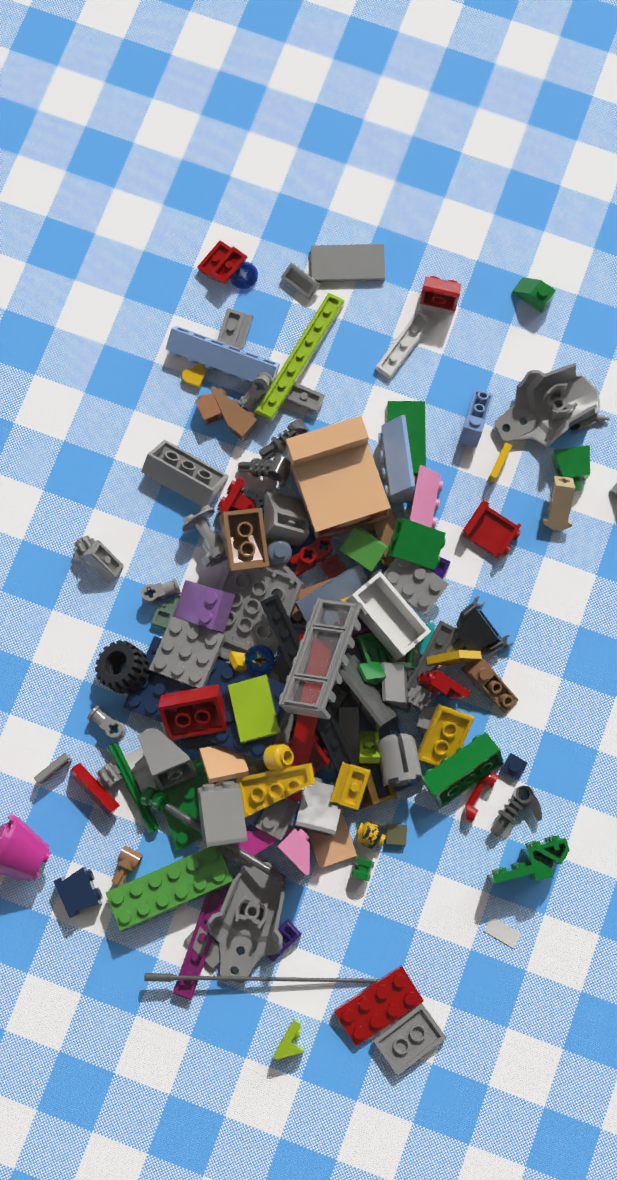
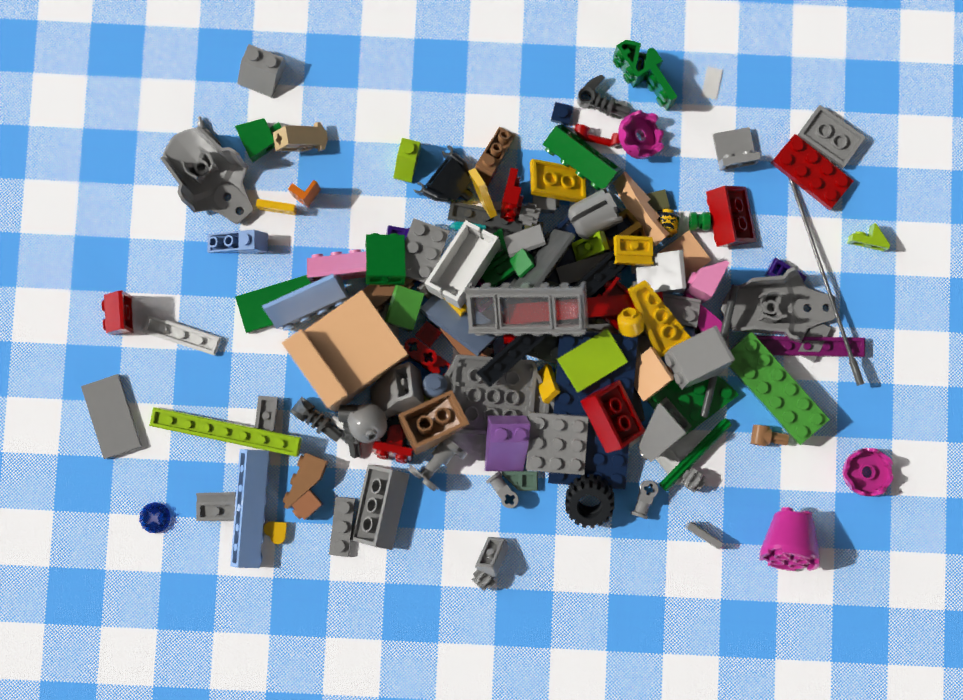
camera: 110 degrees left, 5 degrees up
(43, 961) = (881, 472): none -> dark pink plate
(78, 891) = (806, 471): dark blue hips -> none
(94, 789) = (709, 489): red slope -> none
(155, 799) = (701, 428): green wheel -> none
(178, 435) = (342, 526): none -> light grey plate
(222, 262) = (149, 542): red slope -> none
(256, 390) = (275, 461): light grey connector -> none
(262, 479) = (367, 423): none -> light grey cylinder
(262, 652) = (547, 365): clear blue gear -> none
(300, 281) = (145, 457): light grey tile -> none
(357, 903) = (731, 216): none -> red slope
(398, 809) = (637, 203): none -> light nougat slope
(426, 931) = (735, 149): none -> light grey bracket
(467, 848) = (650, 134): none -> dark pink plate
(491, 530) = (346, 196): red panel -> none
(501, 492) = (306, 197): none -> orange panel
(510, 598) = (407, 160): none -> lime slope
(534, 292) = (90, 222): green slope -> none

